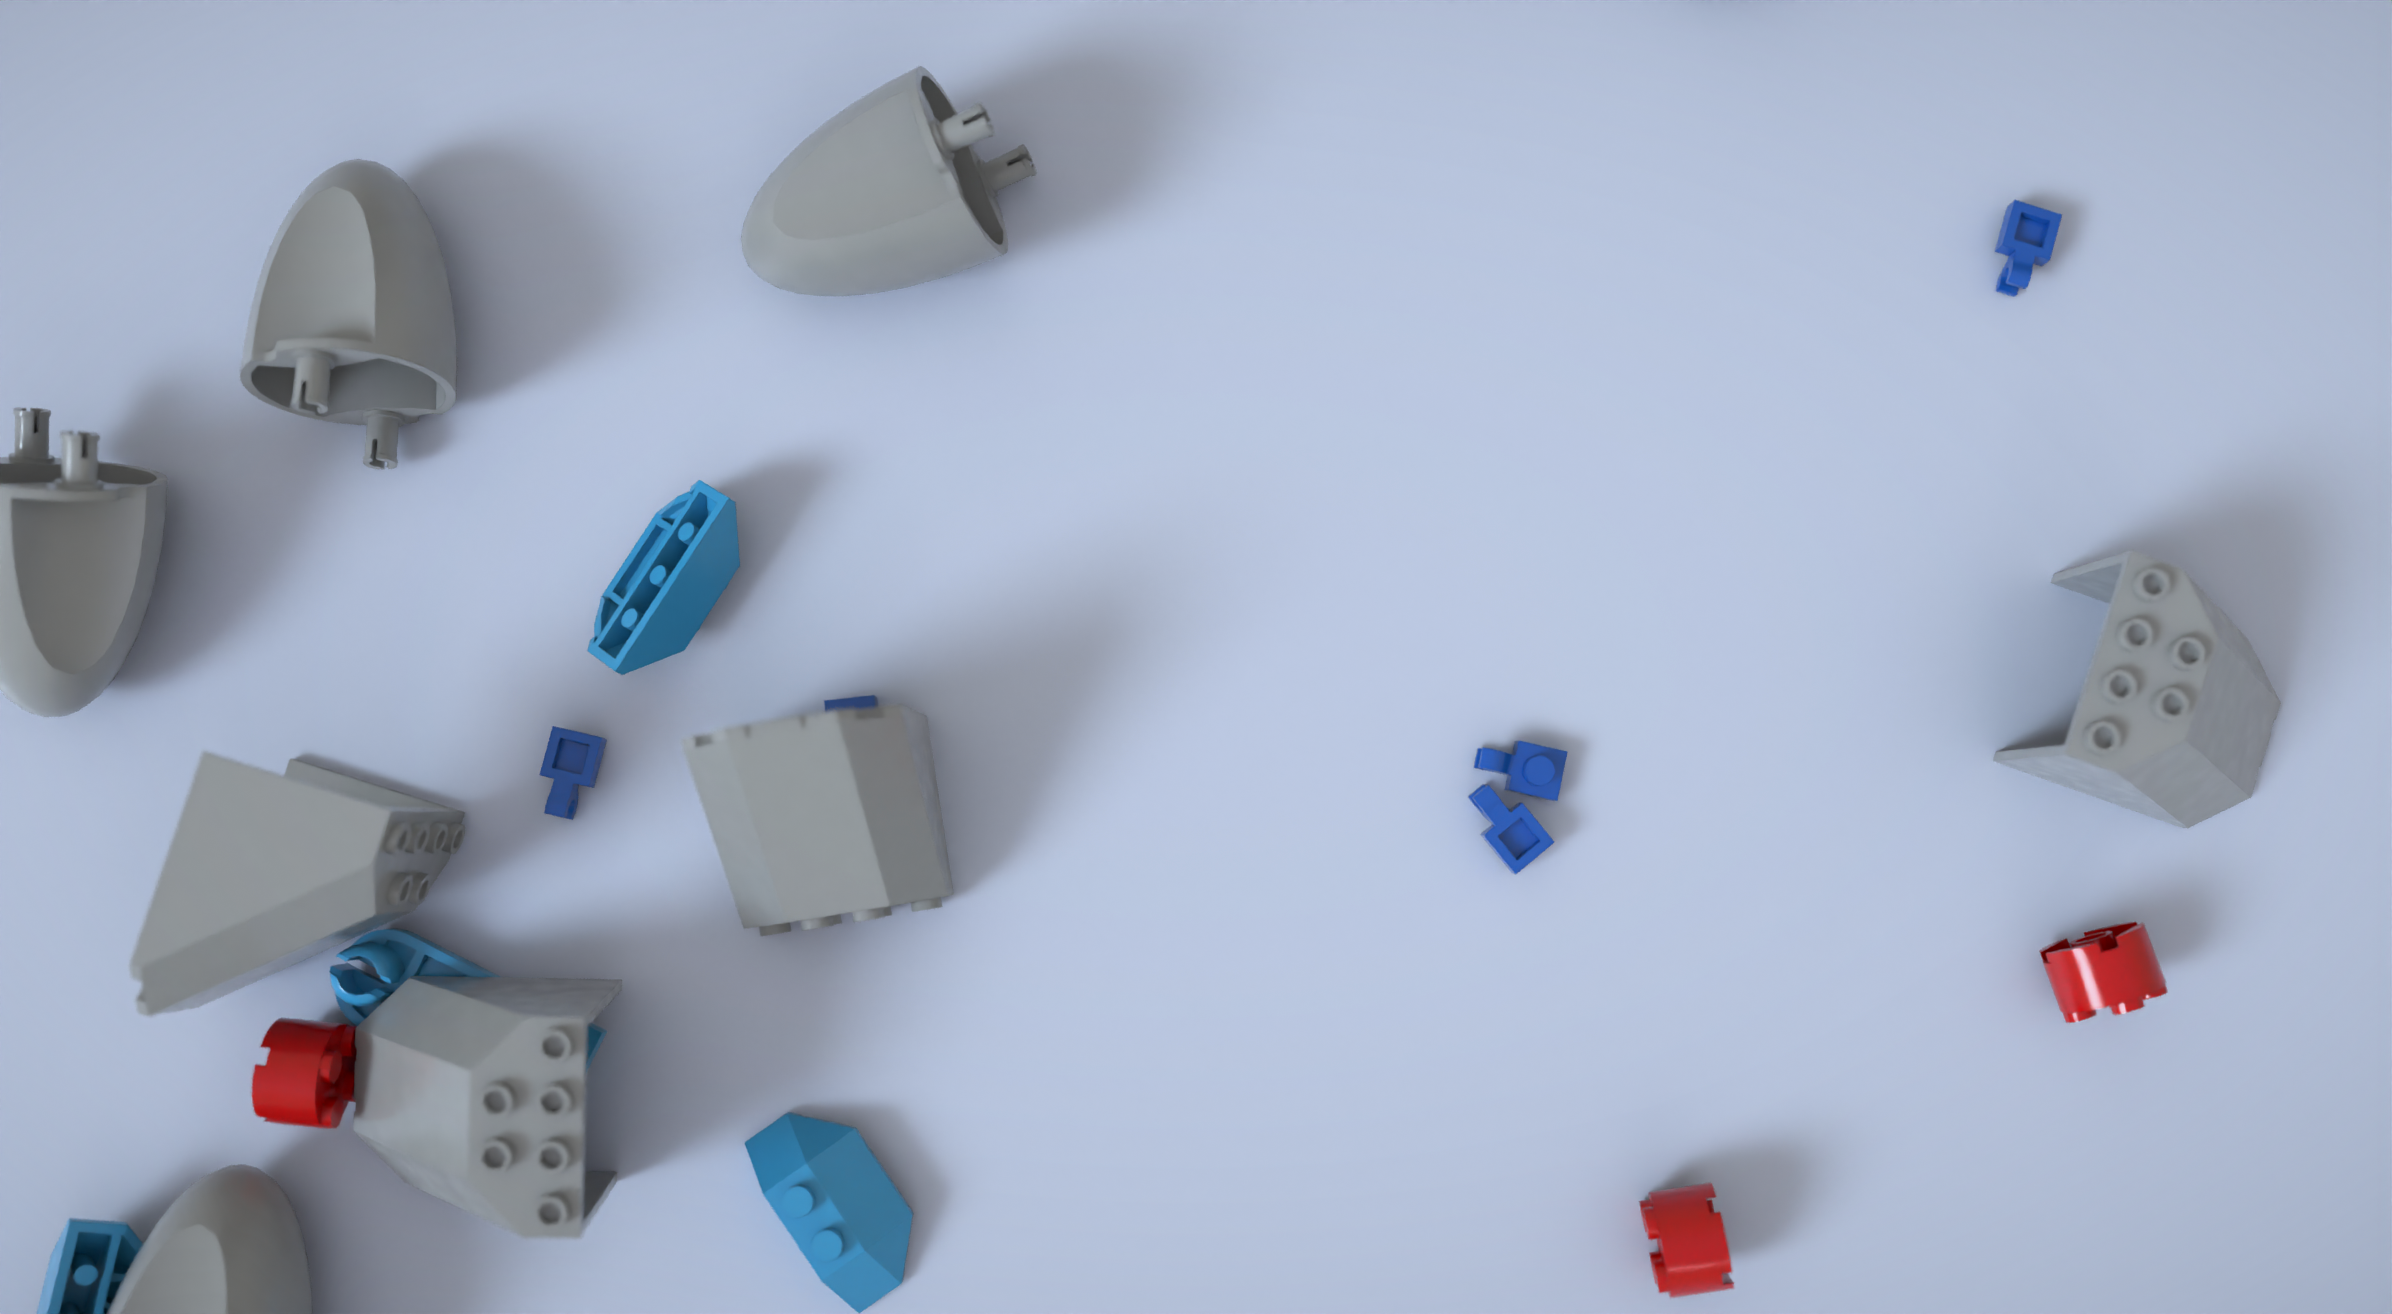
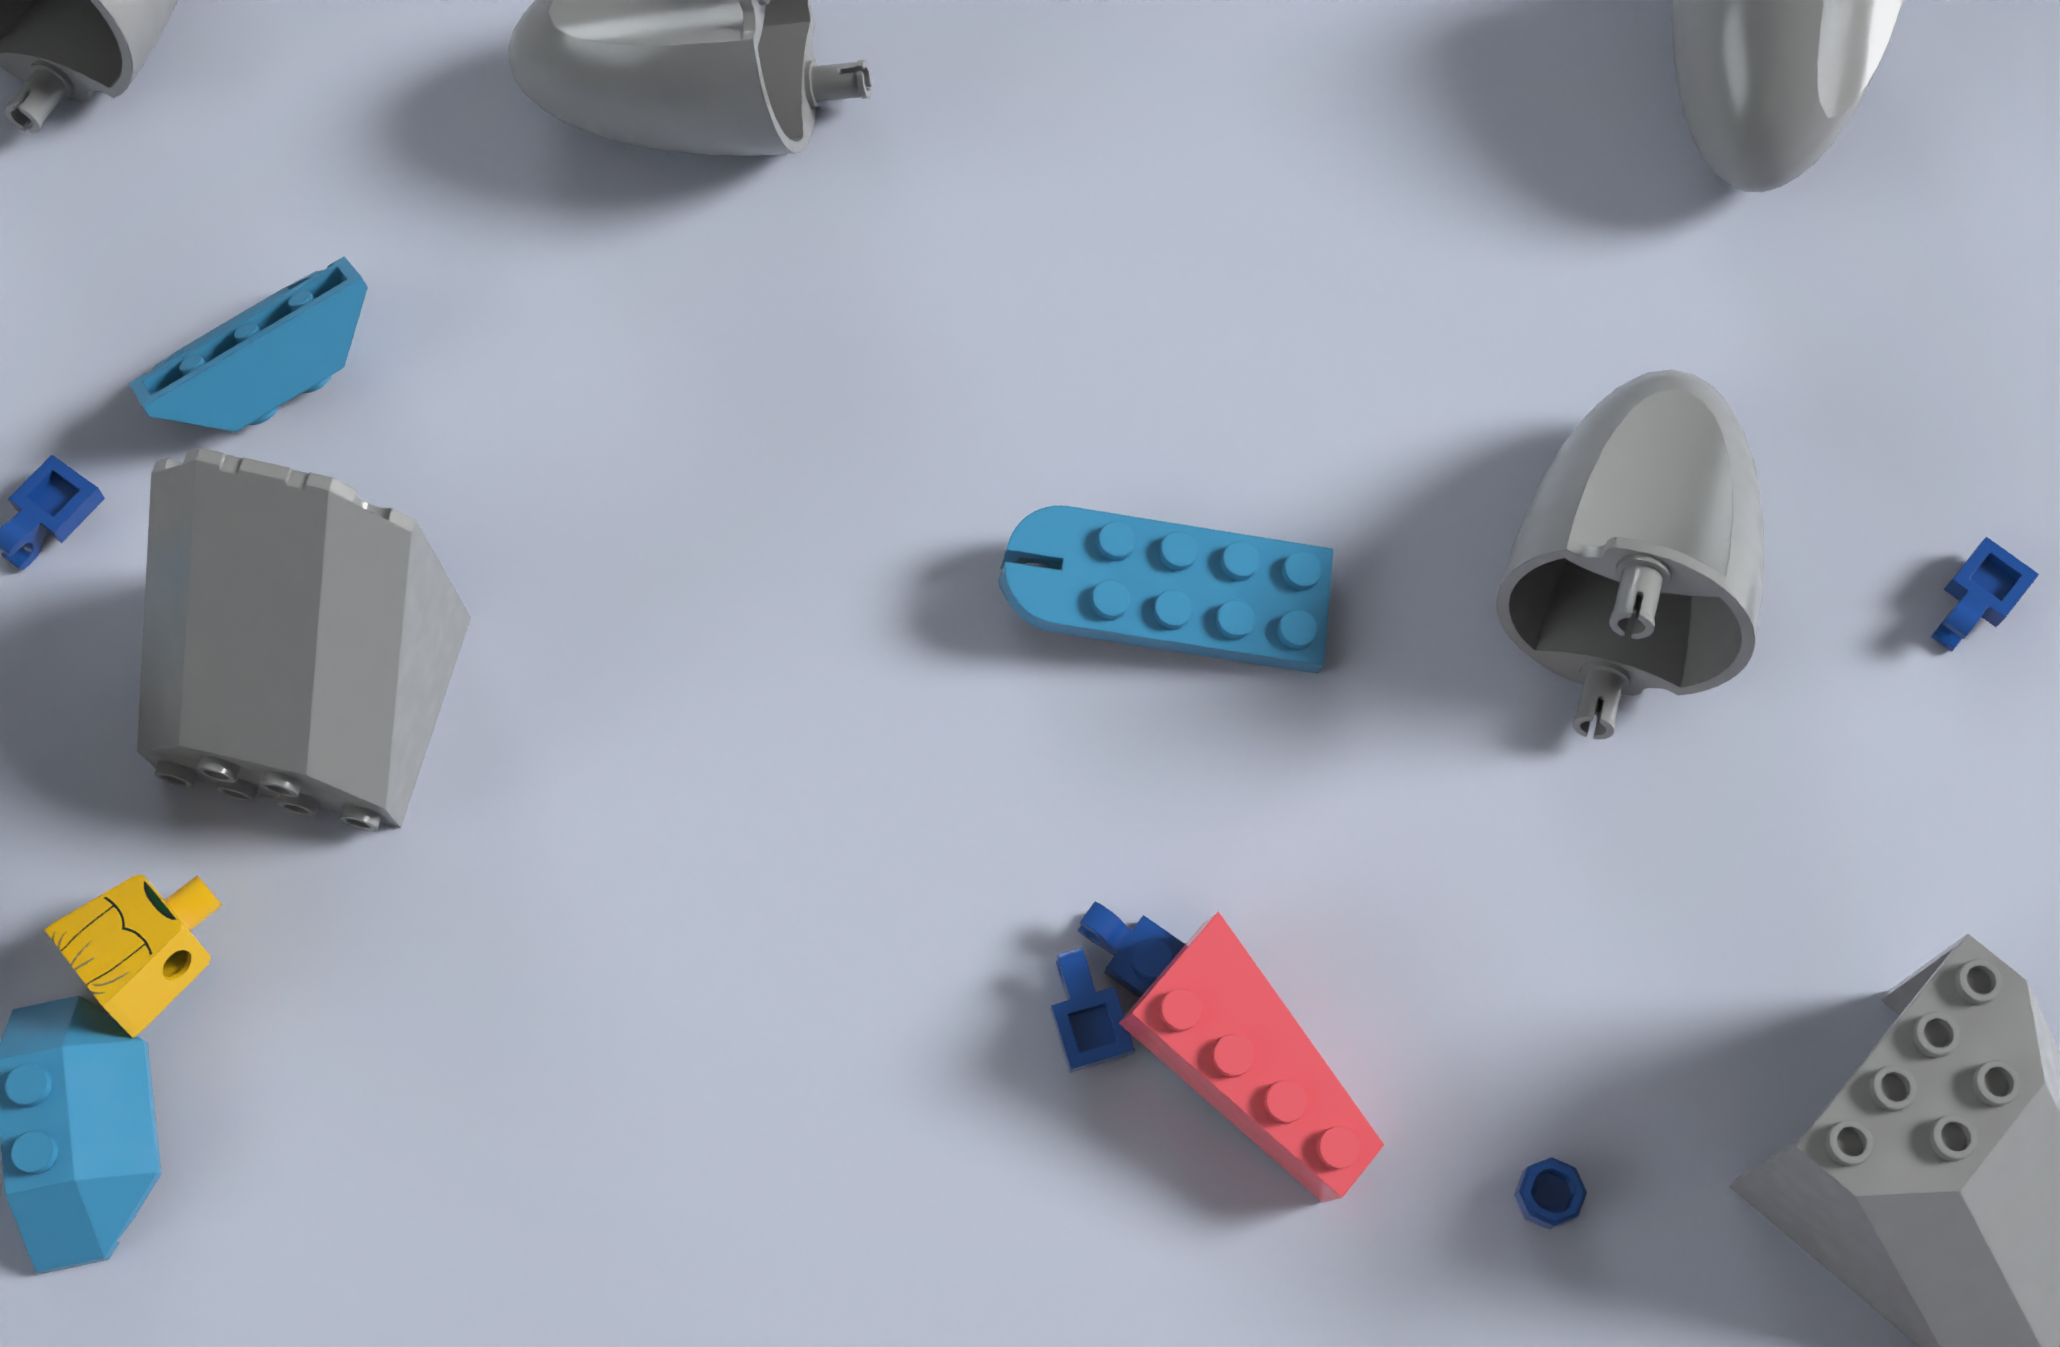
camera: 25 degrees right, 15 degrees down
(816, 1067) = (137, 946): none -> yellow torso
(1438, 484) = (1170, 586): none -> dark azure plate
(1629, 812) = (1249, 1058): none -> coral wedge
(1778, 315) = (1641, 549): none -> light grey windscreen
(1876, 820) = (1550, 1193): none -> blue tile

